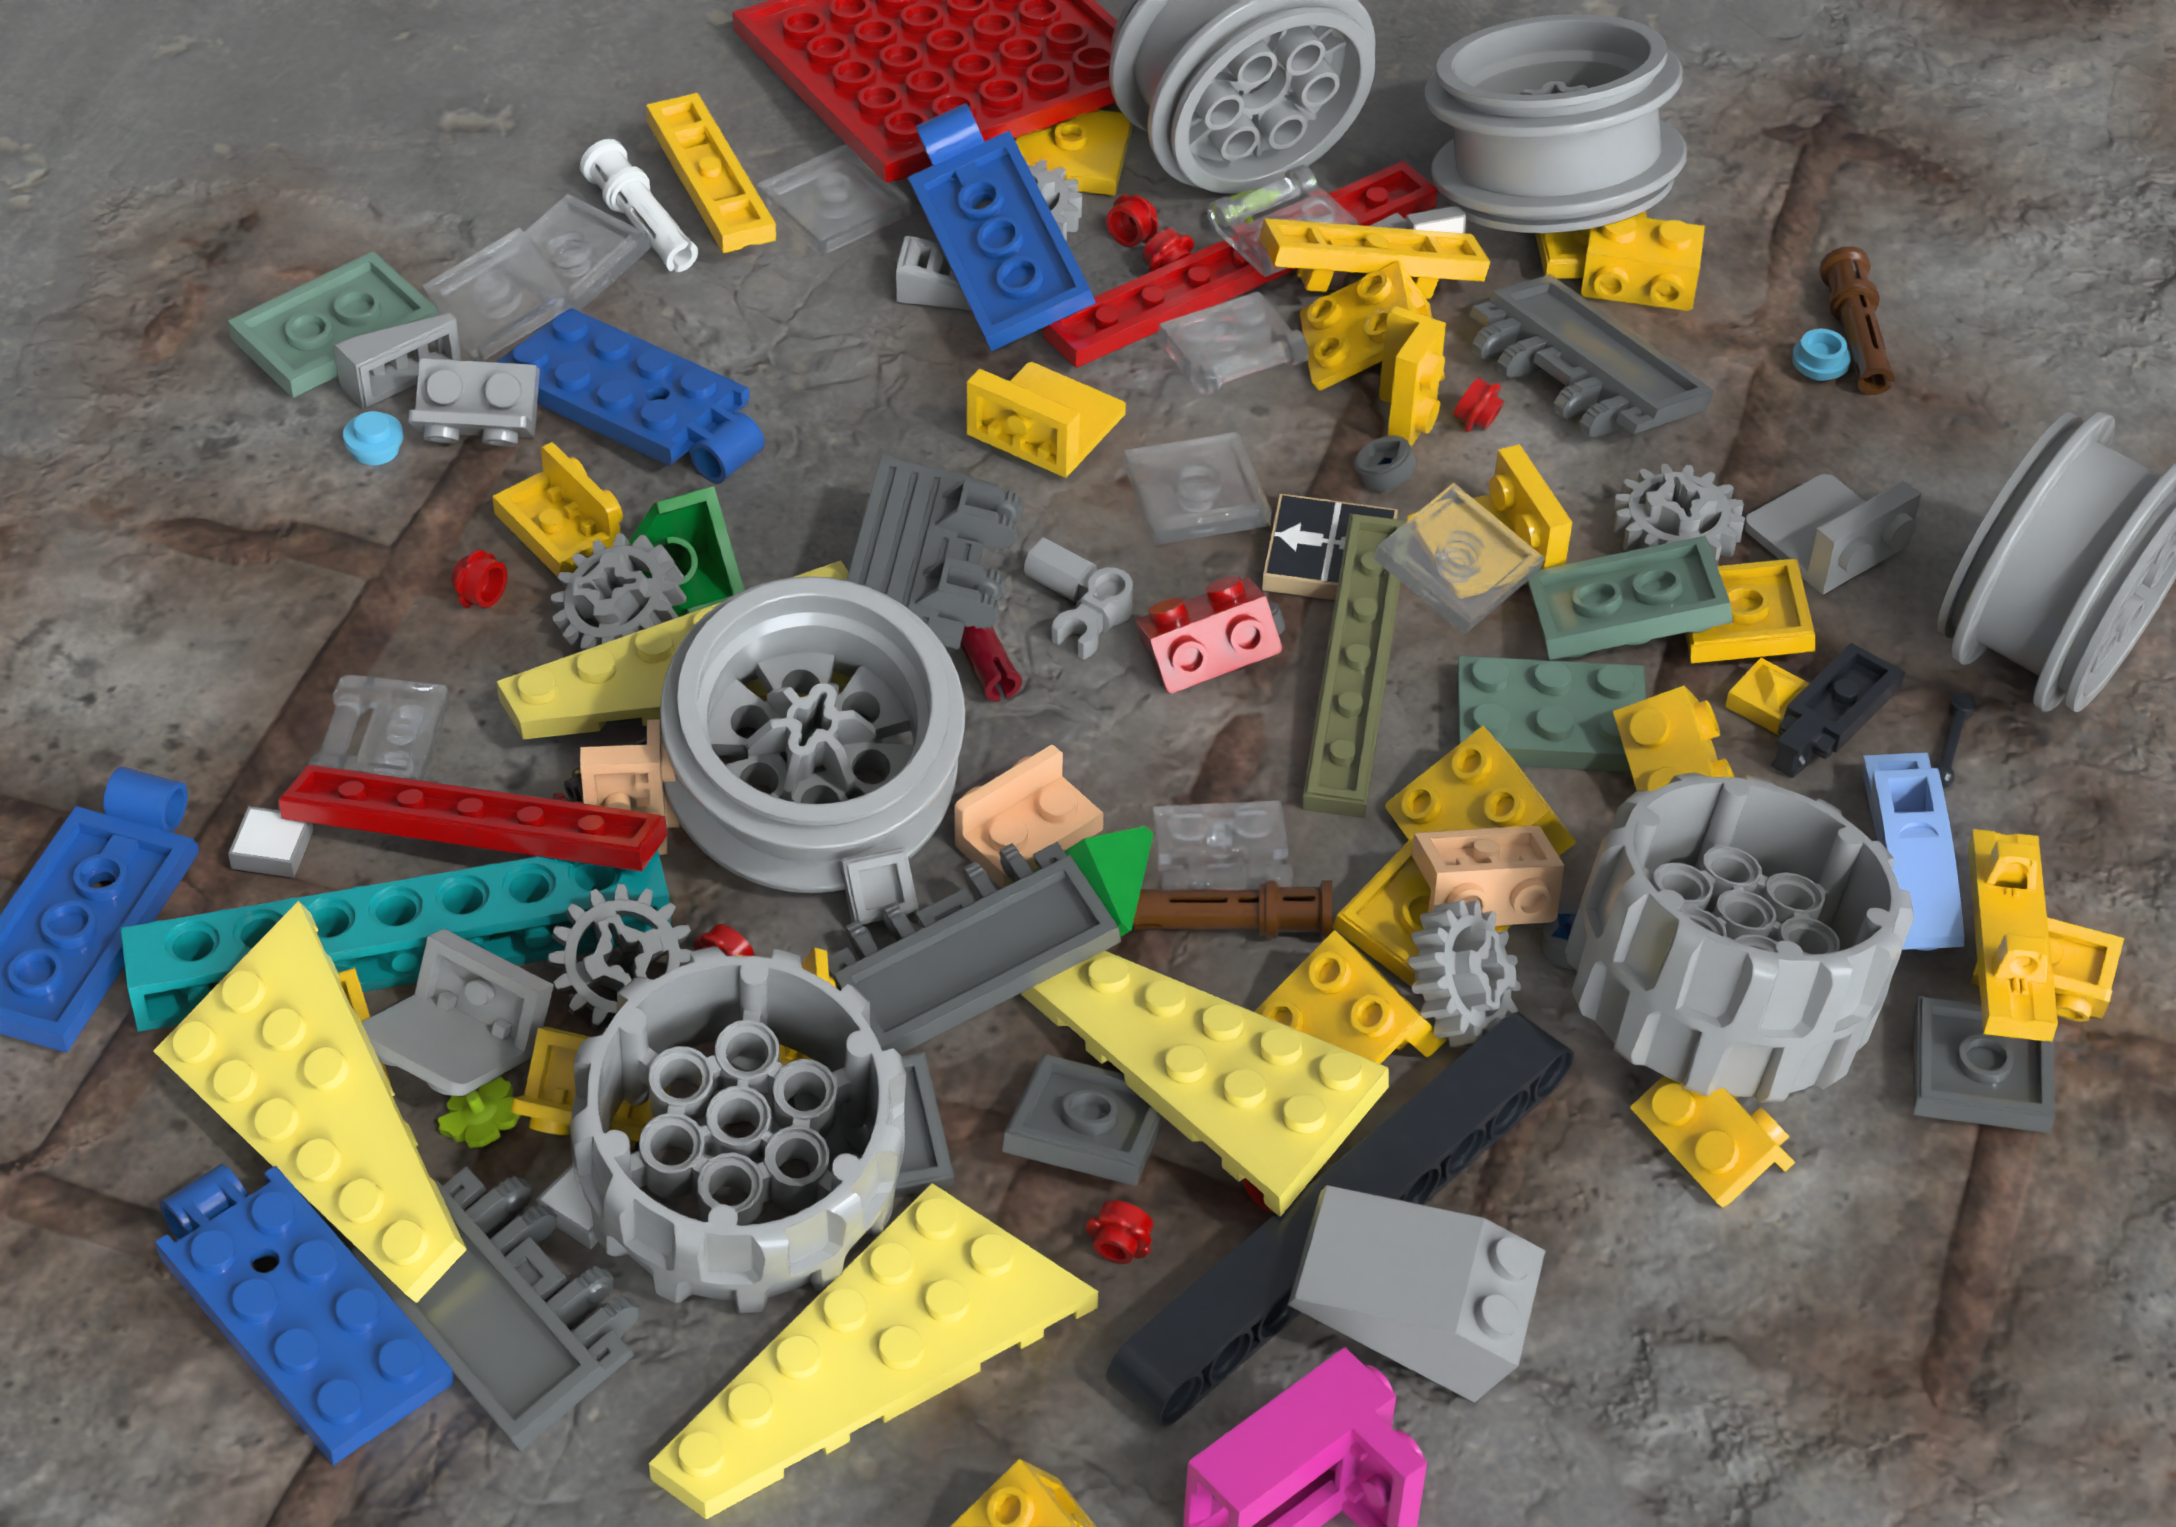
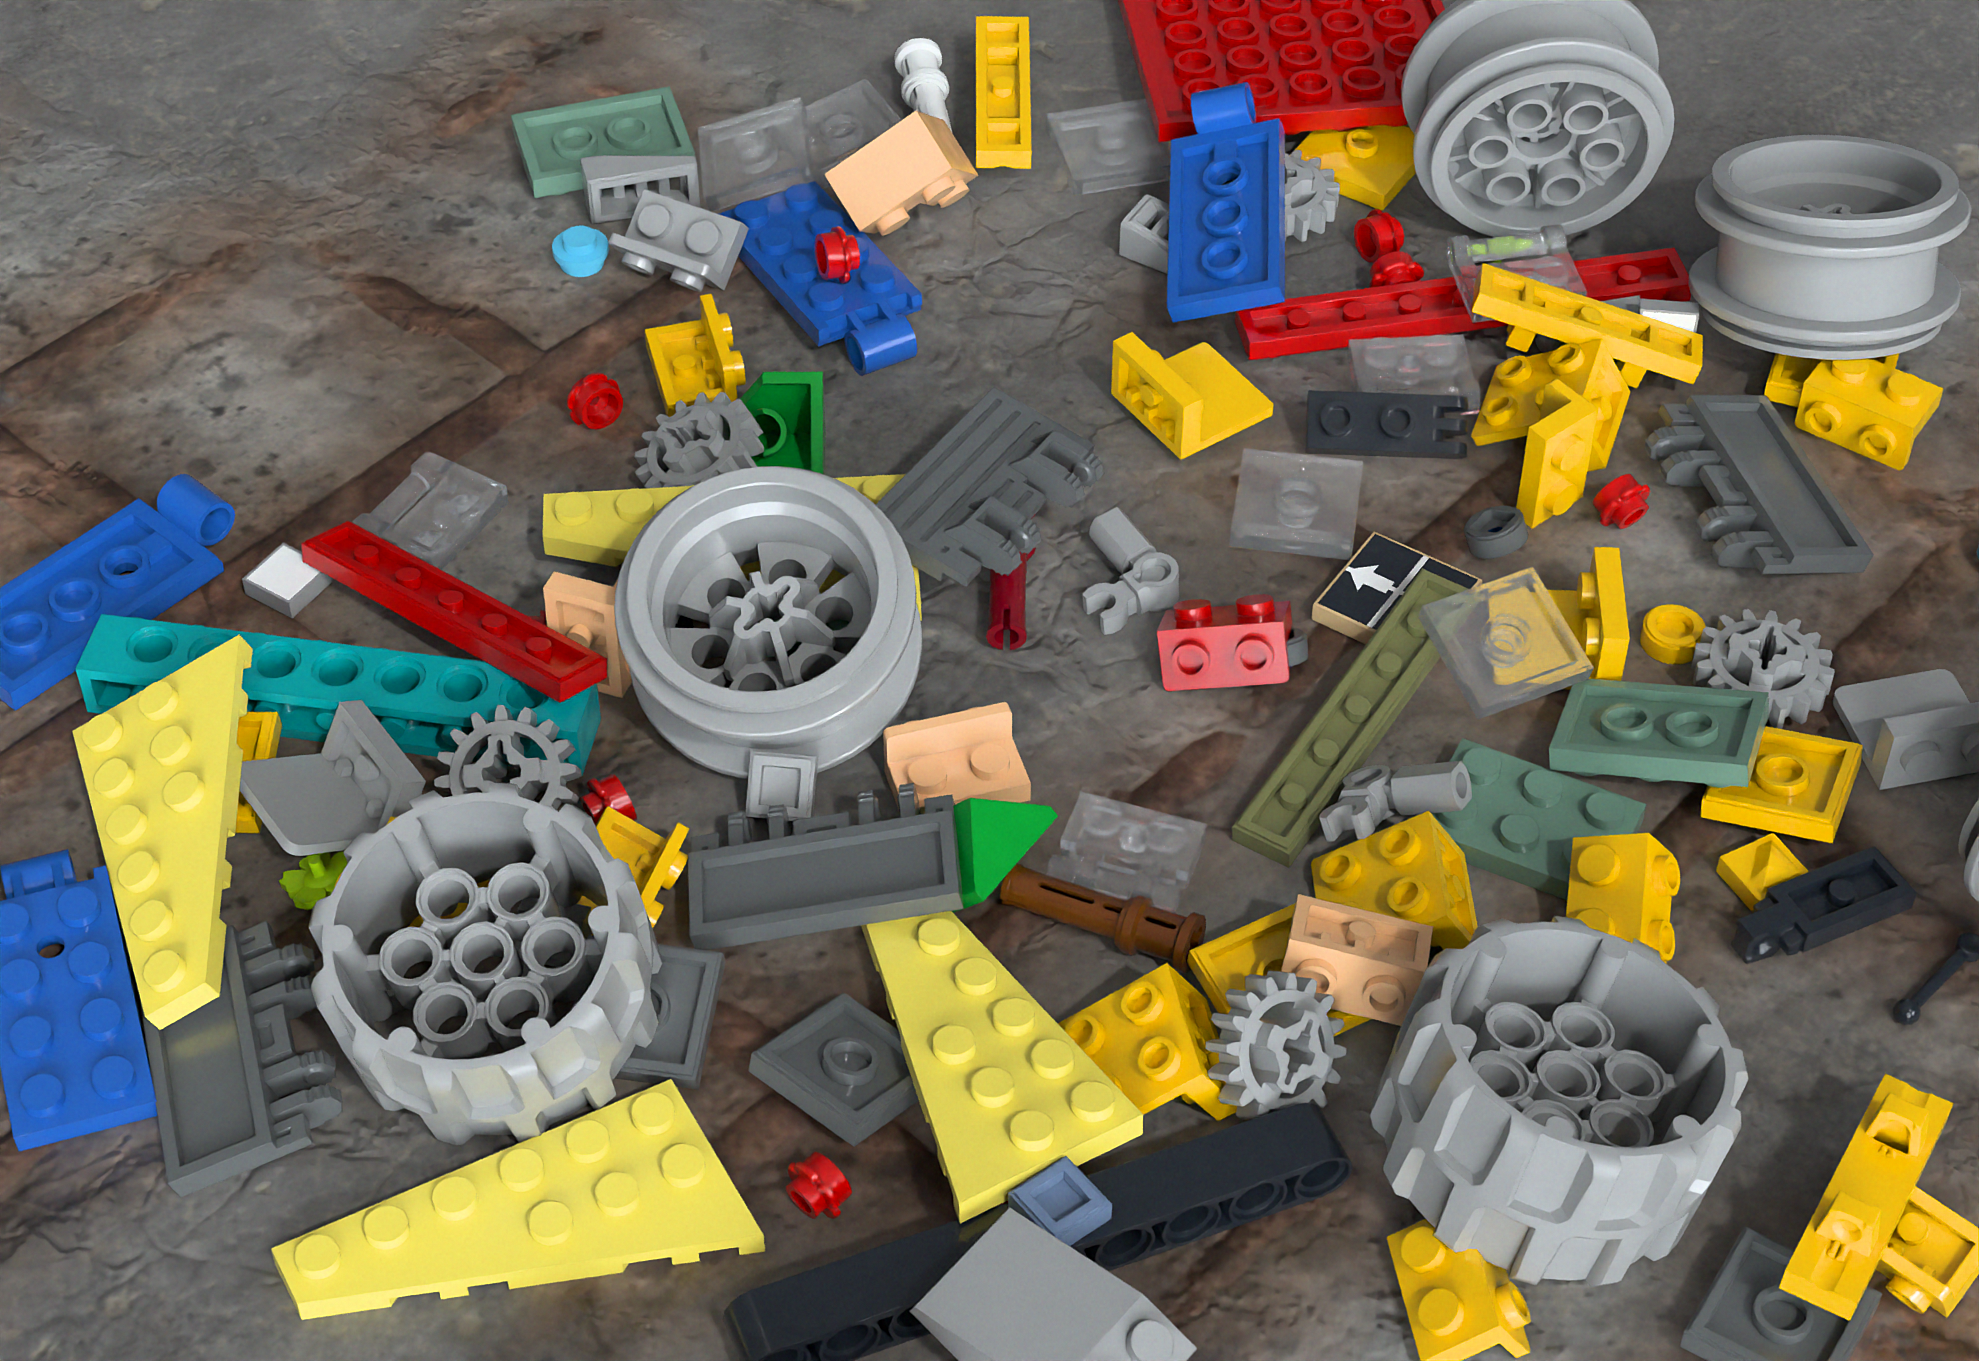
camera: 25 degrees right, 0 degrees up
(654, 371) = (836, 254): none -> red plate
(666, 278) = (899, 170): none -> light nougat slope
(1234, 393) = (1384, 424): none -> black hinge
(1360, 1164) = (1062, 1202): none -> sand blue tile
(1416, 727) = (1376, 794): none -> light grey bar
(1587, 508) = (1671, 633): none -> yellow tile
(1916, 831) = (1820, 1077): light blue slope -> none

